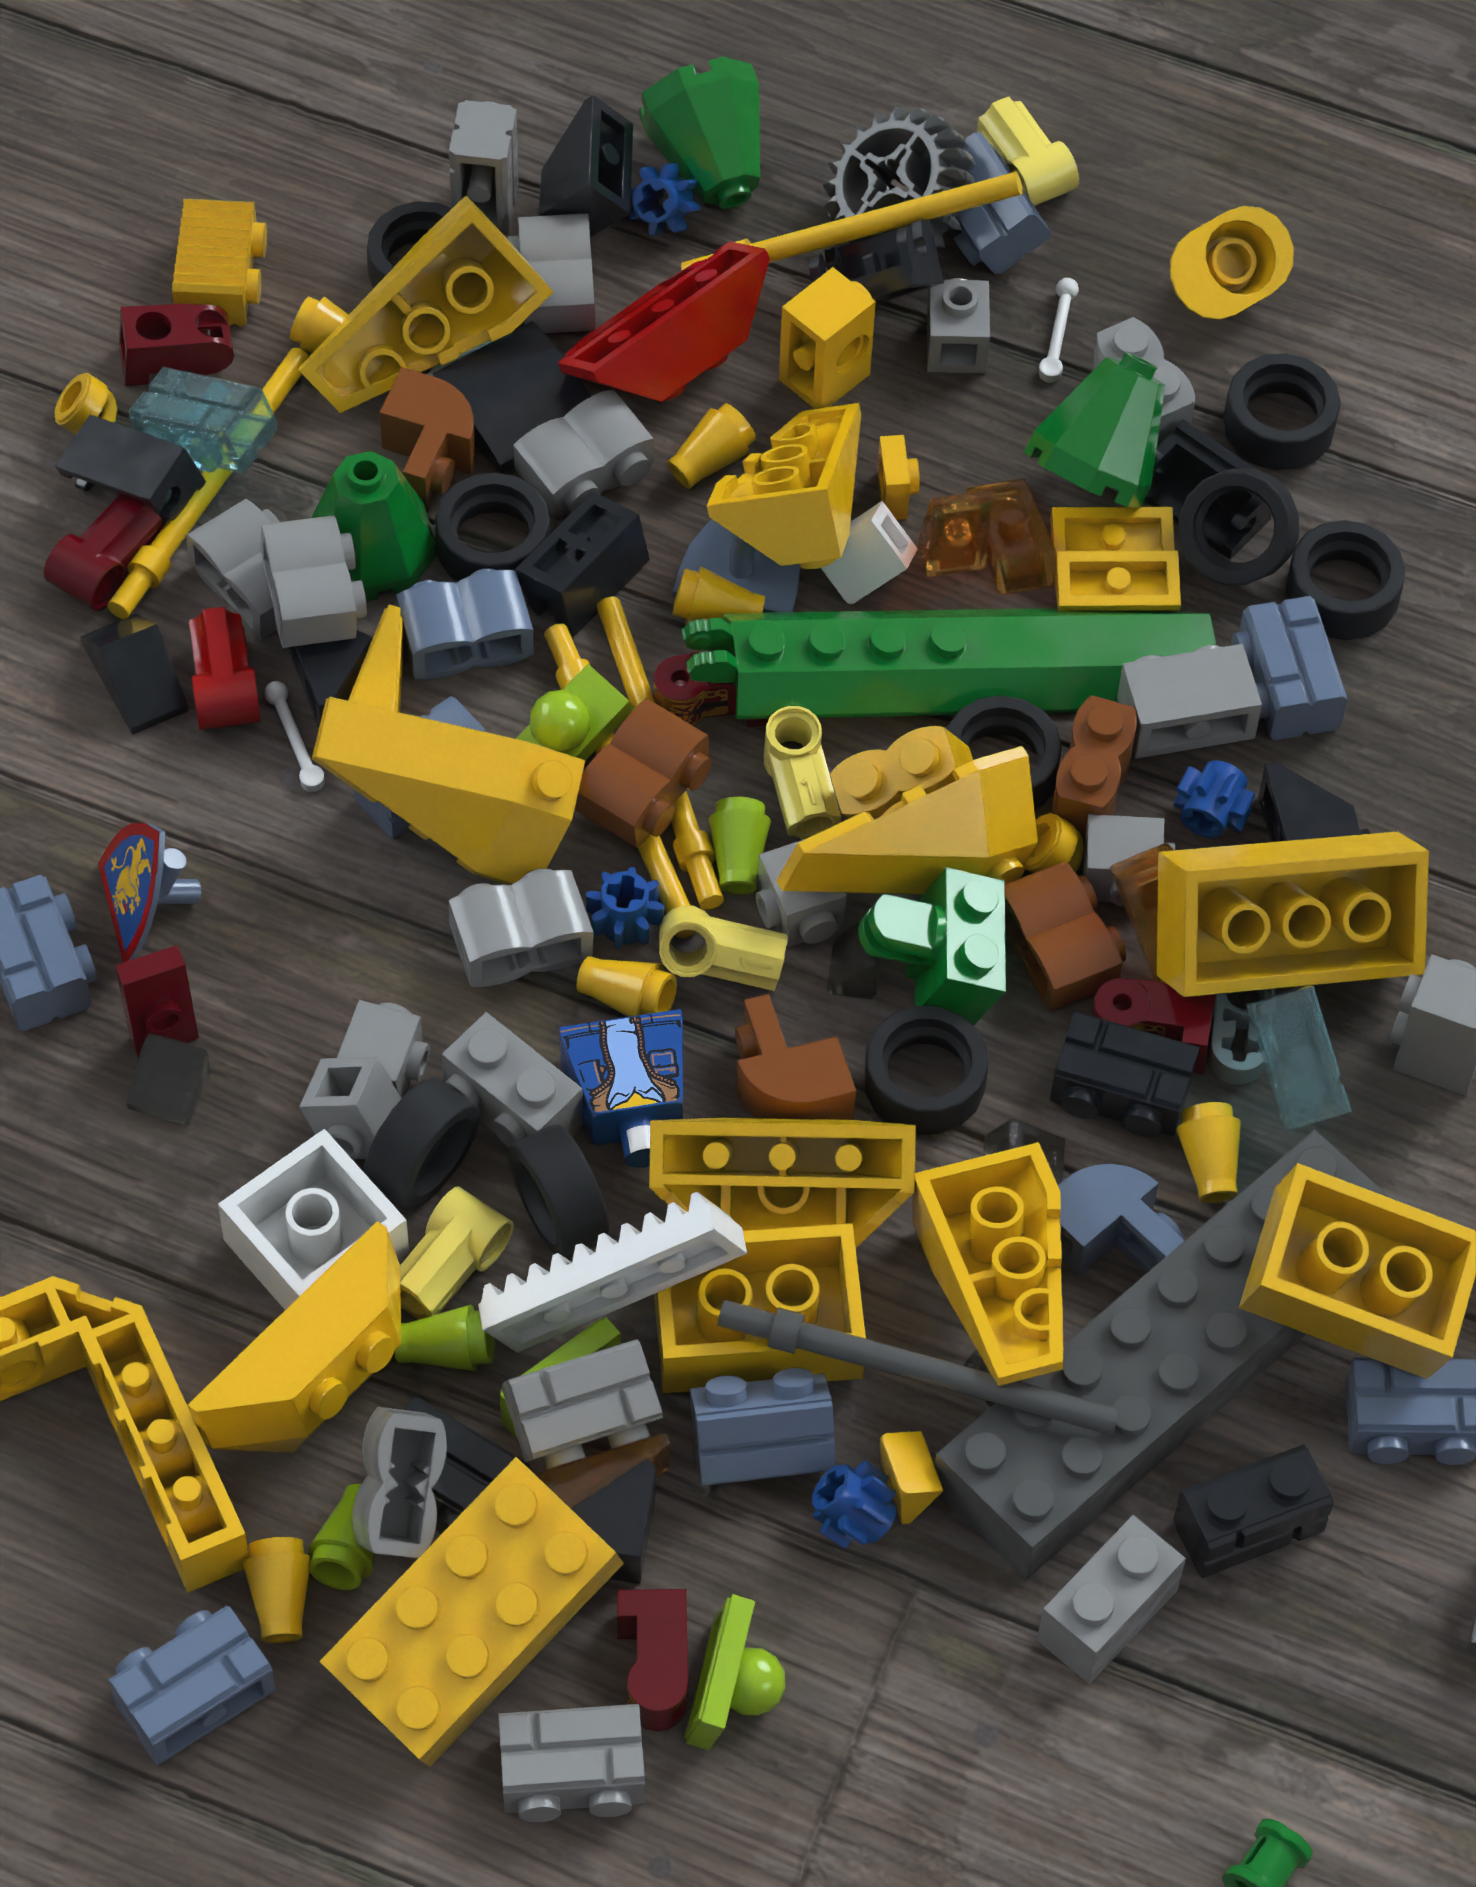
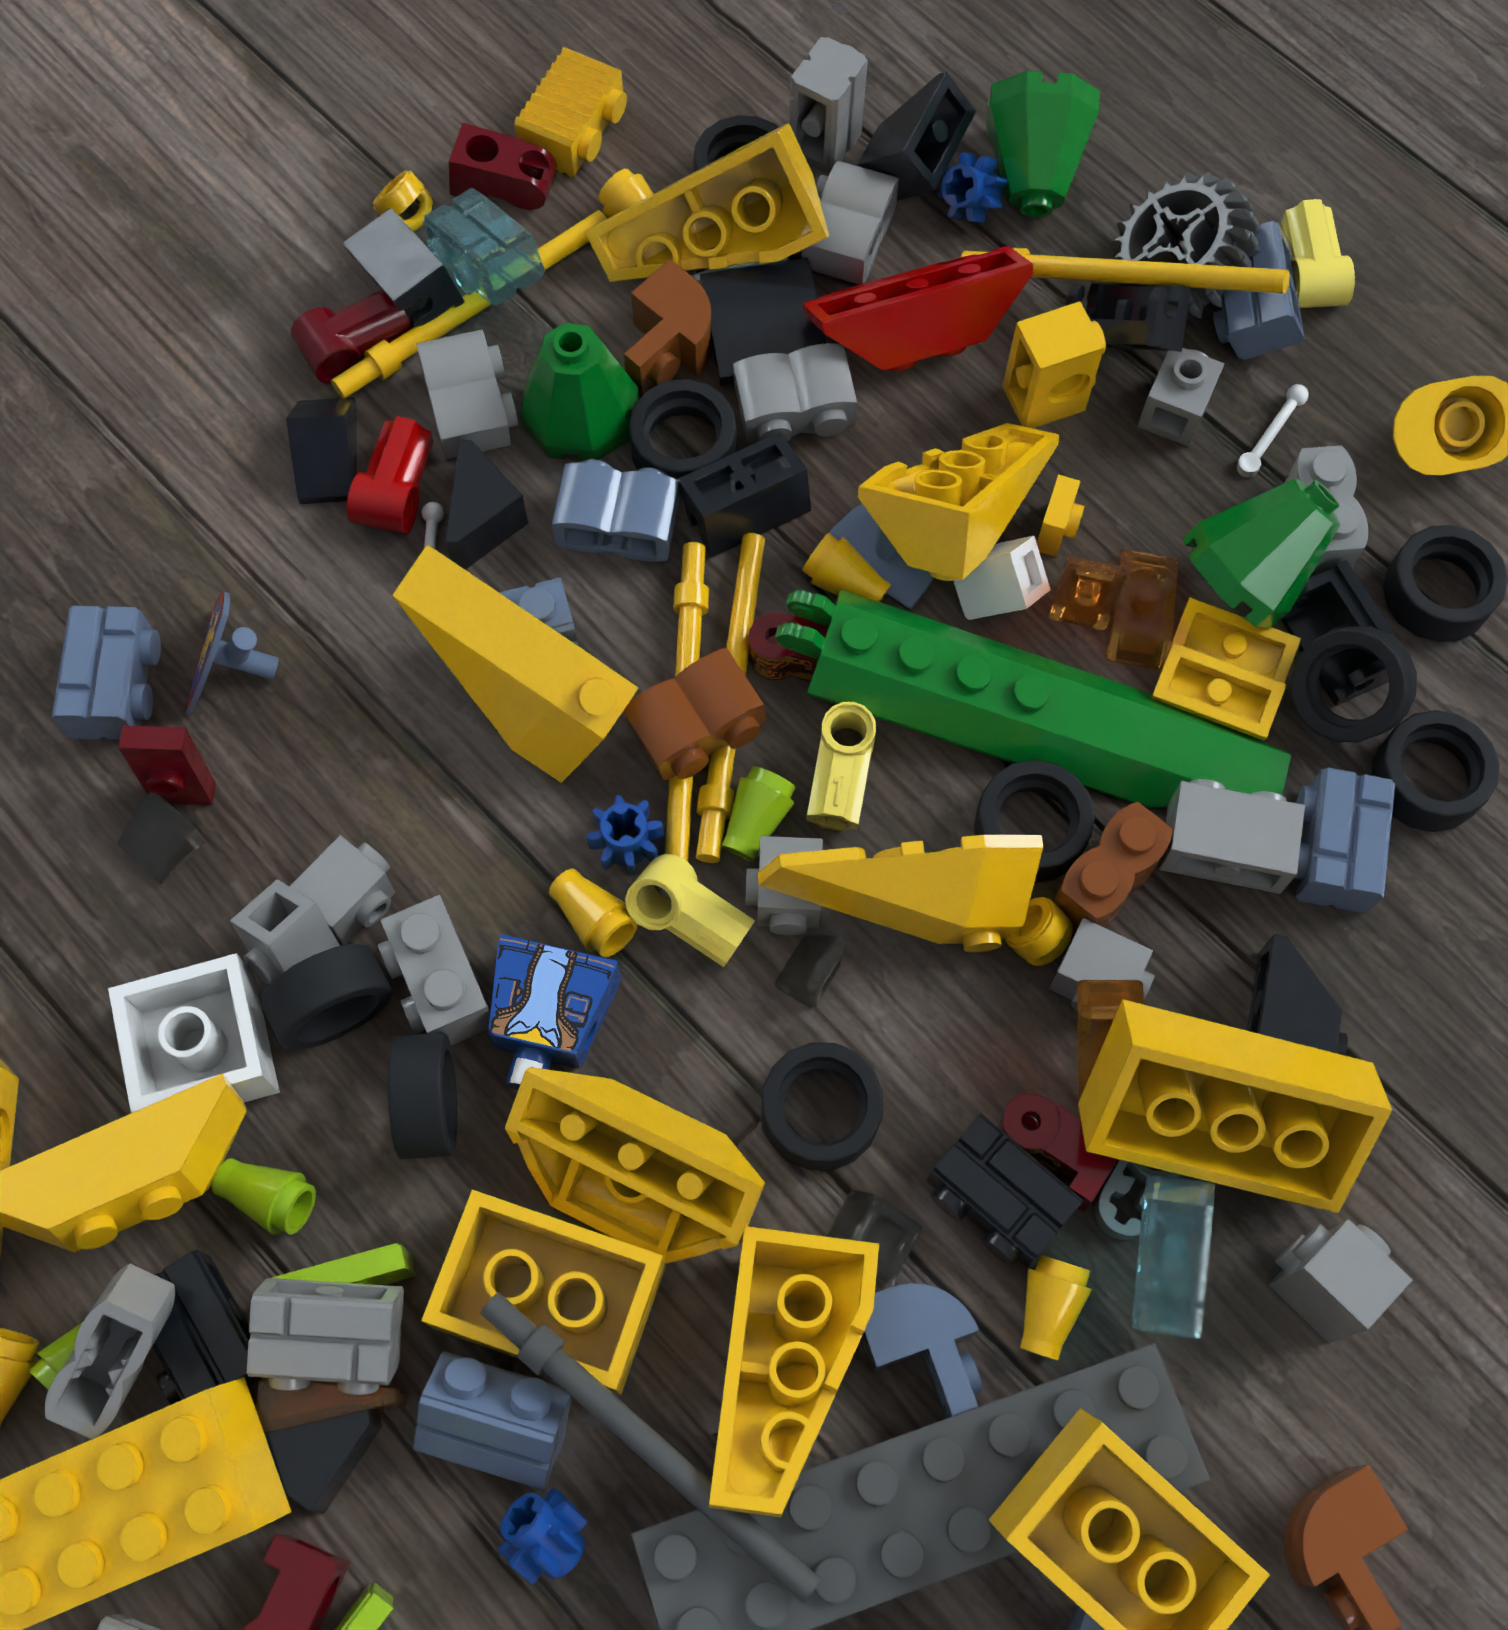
camera: 25 degrees right, 10 degrees up
(311, 582) = (486, 425): light grey brick -> none
(381, 672) = (515, 541): yellow slope -> none
(458, 1240) = (325, 1100): light yellow piece -> none
(520, 927) = (524, 815): light grey brick -> none
(577, 716) = (659, 641): lime tile -> none
(612, 1275) = (415, 1213): white gear -> none
(712, 445) = (911, 427): yellow cone -> none
(791, 1081) = (691, 1074): dark orange brick -> none
(877, 778) = (931, 812): yellow brick -> none
(910, 1473) = (607, 1528): yellow slope -> none
(947, 940) = (894, 990): brick -> none
(1060, 935) = (1007, 1022): dark orange brick -> none
(1214, 799) = (1212, 944): blue gear -> none

